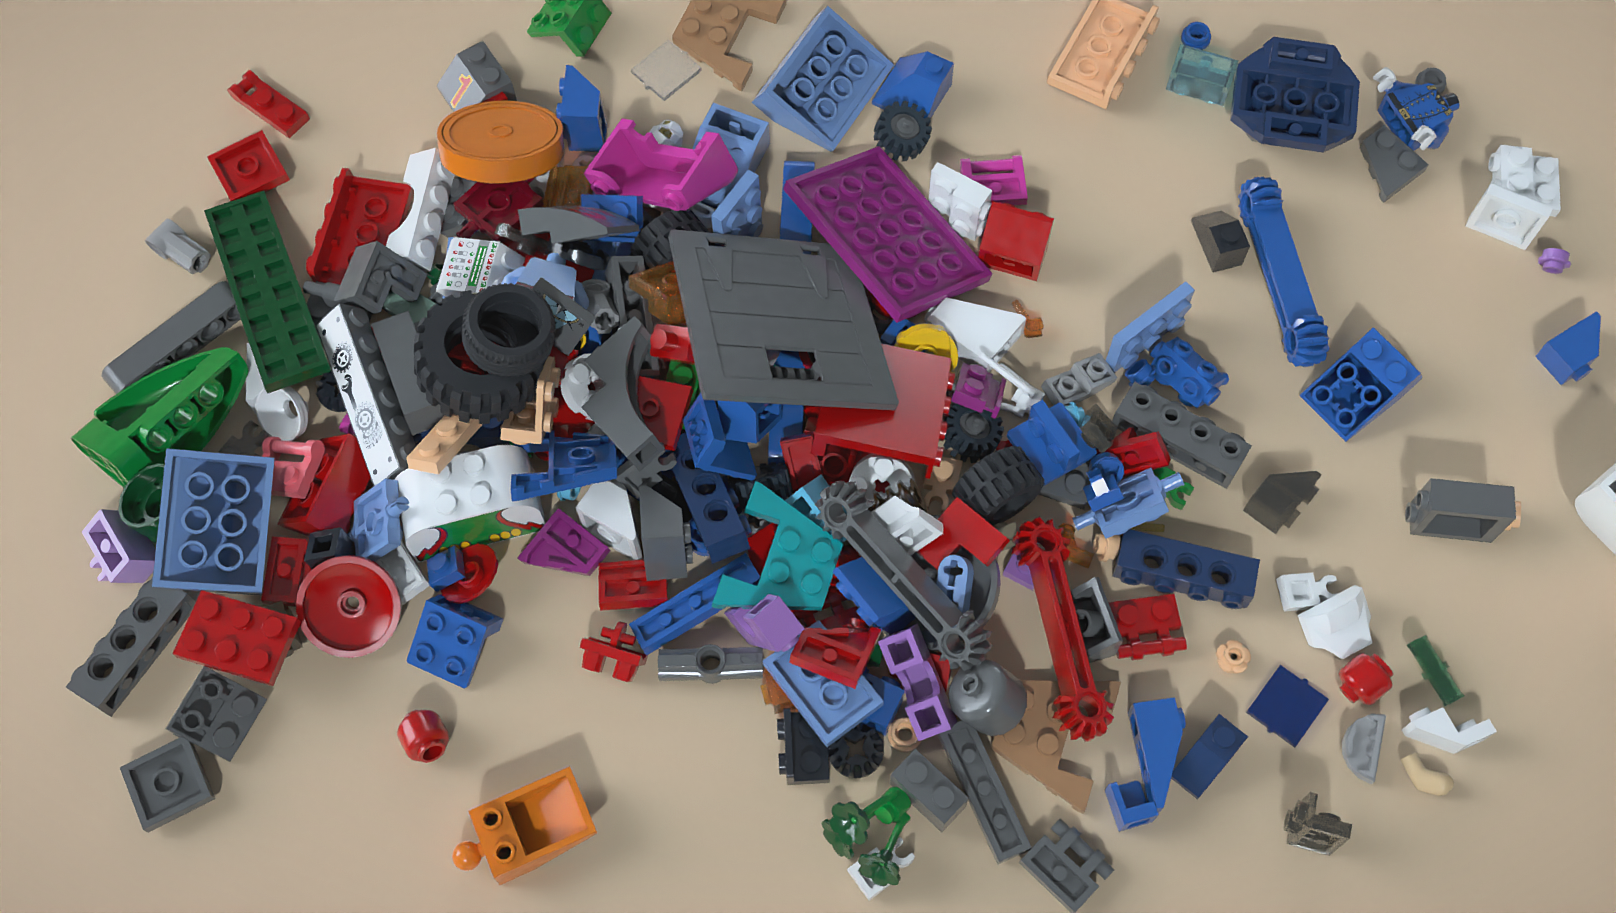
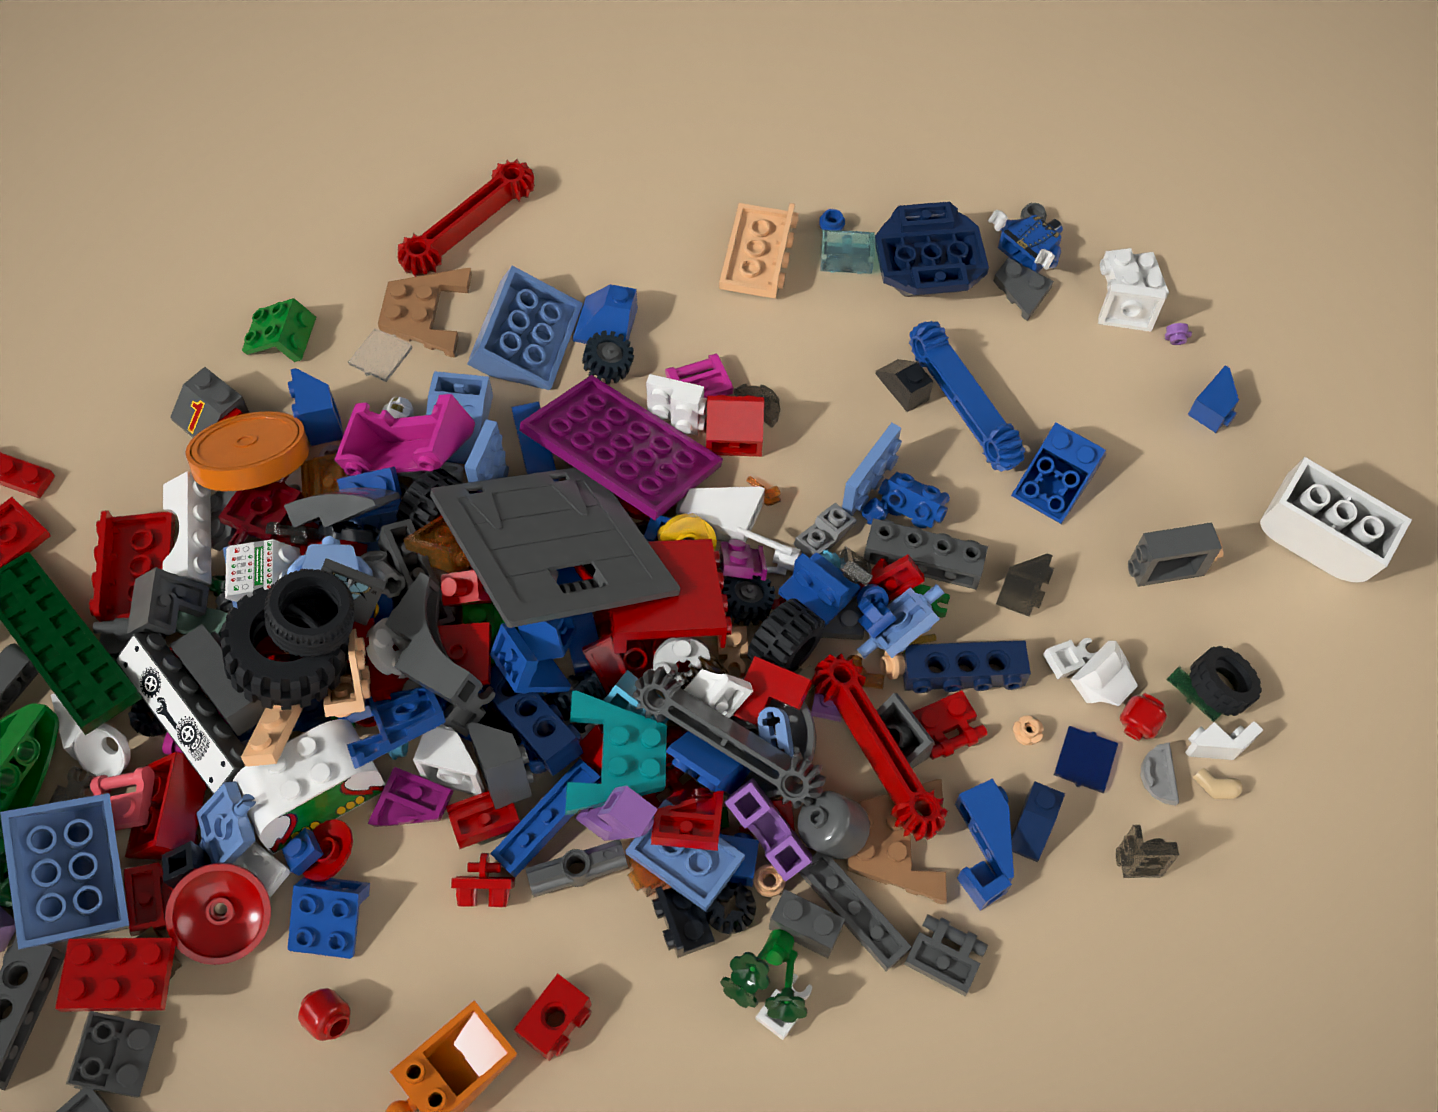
camera: 20 degrees left, 5 degrees down
(653, 788) = (557, 997): none -> red brick
(1063, 221) = (771, 401): none -> clear smoke plate
(1455, 675) = (1215, 691): none -> black tyre

